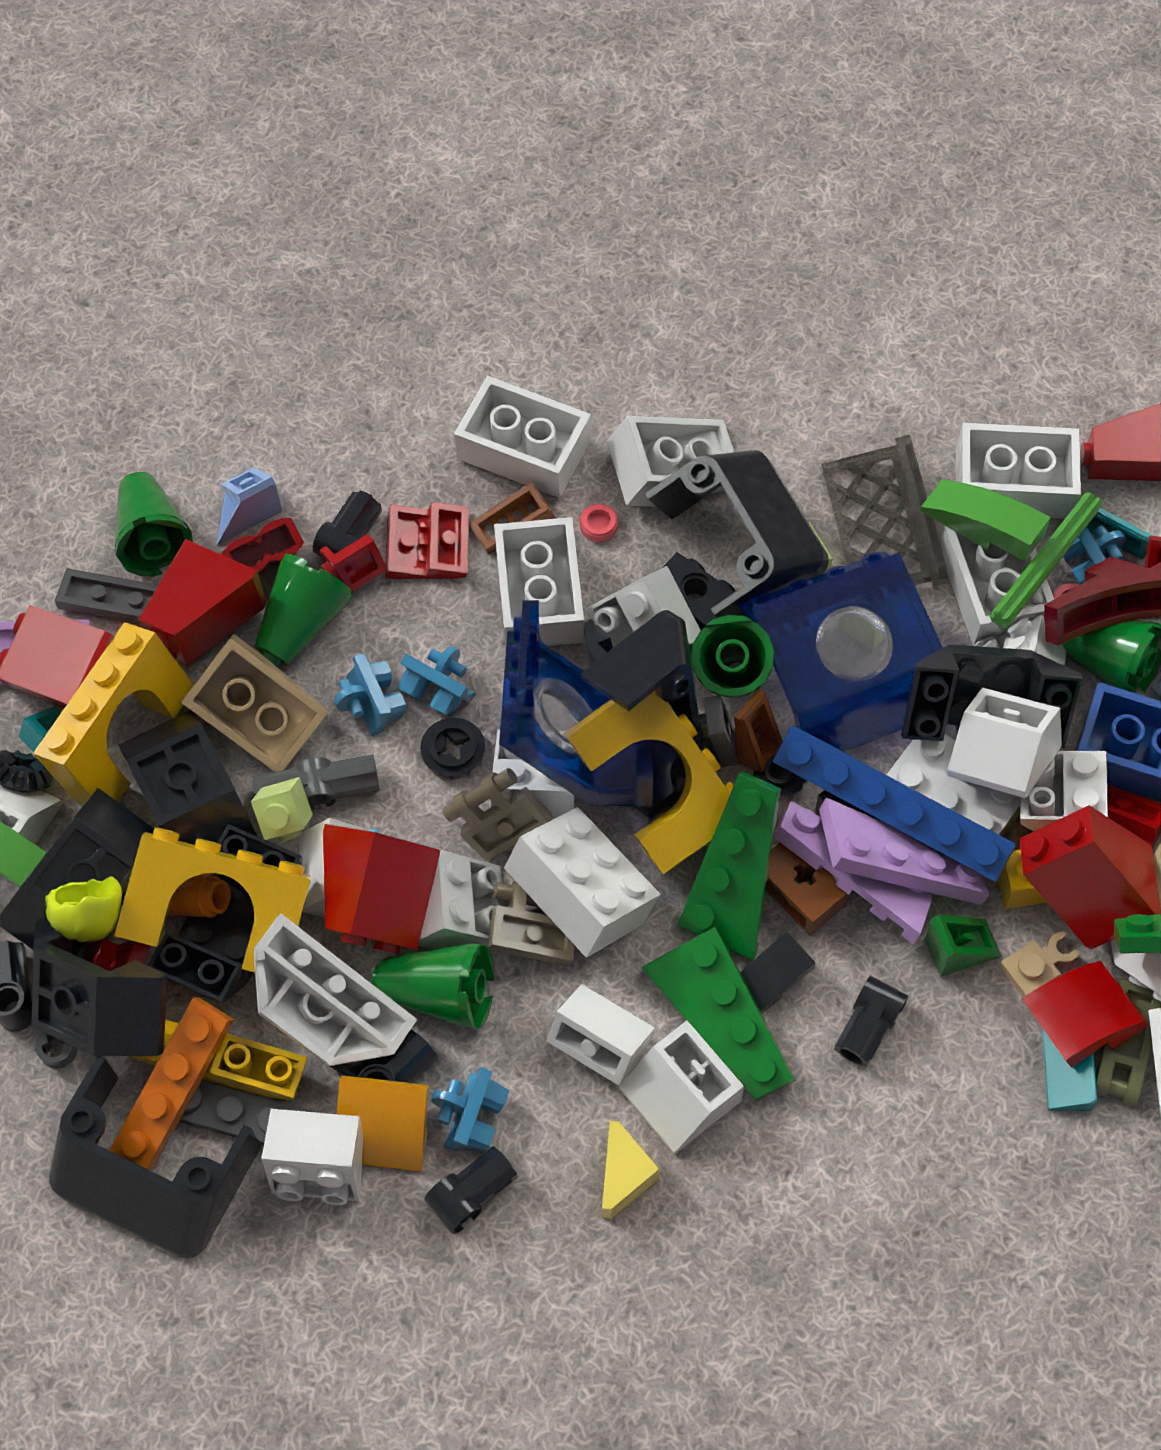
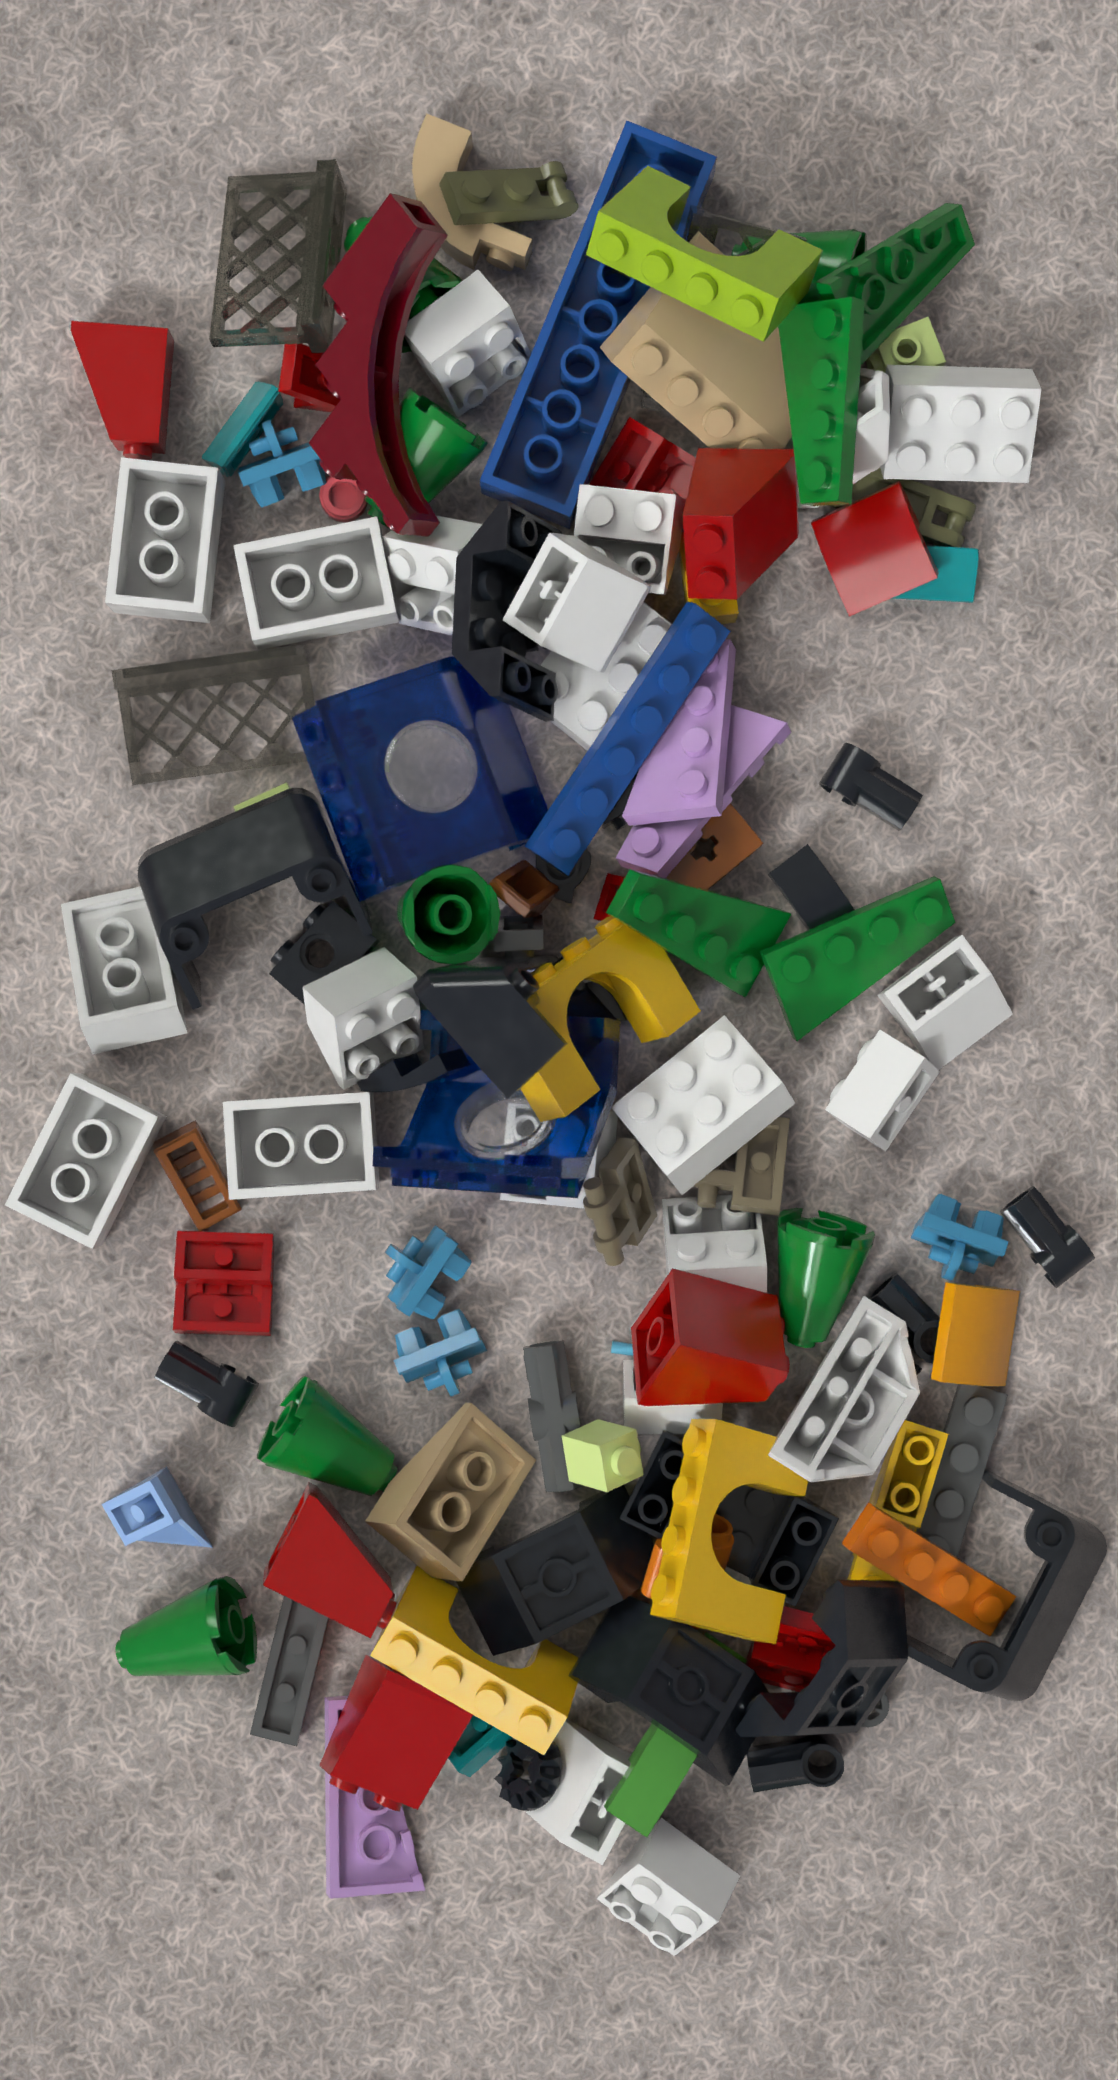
camera: 85 degrees left, 25 degrees up
(85, 909) = (742, 1680): neon yellow hair -> none
(267, 546) = (245, 1502): red brick -> none
(313, 1156) = (1016, 1410): white slope -> none
(355, 563) = (266, 1373): red bracket -> none
(459, 732) = (503, 1275): black gear -> none
(598, 523) = (205, 1068): coral tile -> none
(627, 1171) = (1035, 1067): light yellow slope -> none
(960, 943) = (783, 675): green slope -> none
(987, 517) = (256, 589): bright green slope -> none
(1034, 967) = (810, 599): tan plate -> none
(1045, 560) = (315, 521): bright green axle -> none

